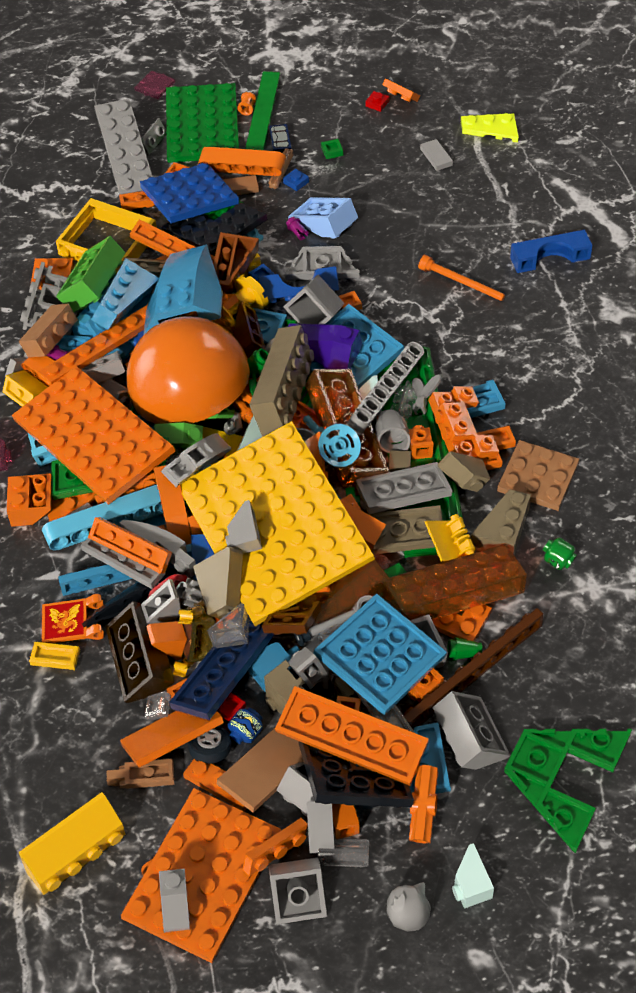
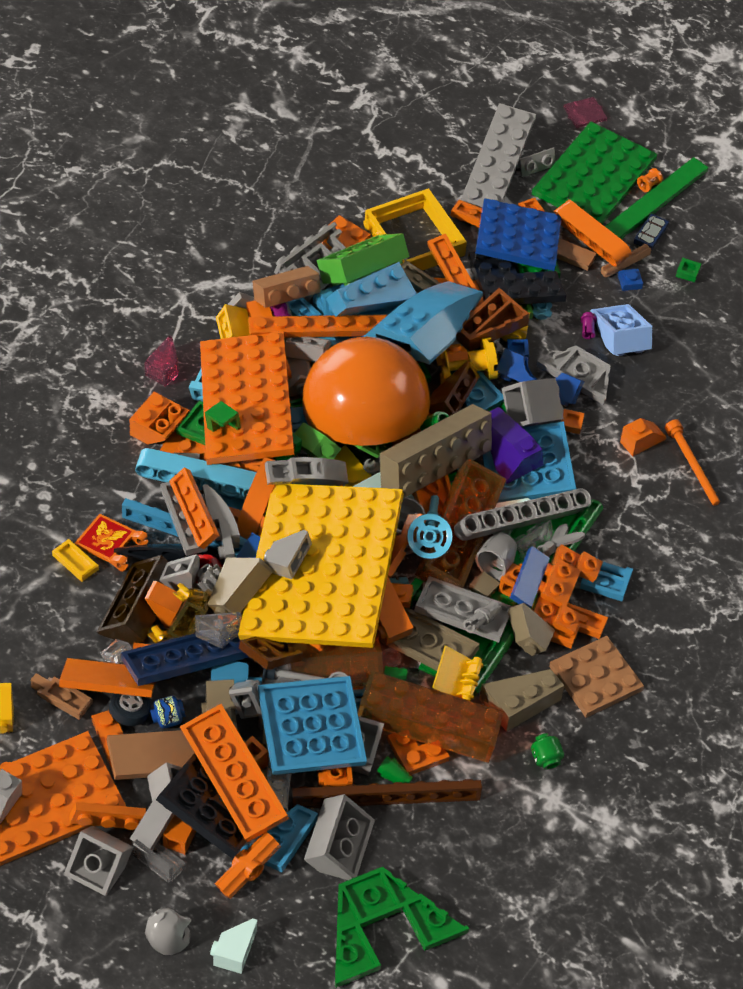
camera: 30 degrees right, 0 degrees up
(94, 454) = (220, 416): none -> green panel
(231, 706) = (170, 687): red plate -> none
(408, 284) = (641, 436): none -> orange slope
(427, 482) = (482, 616): none -> light grey pin
(433, 430) = (529, 577): none -> tile

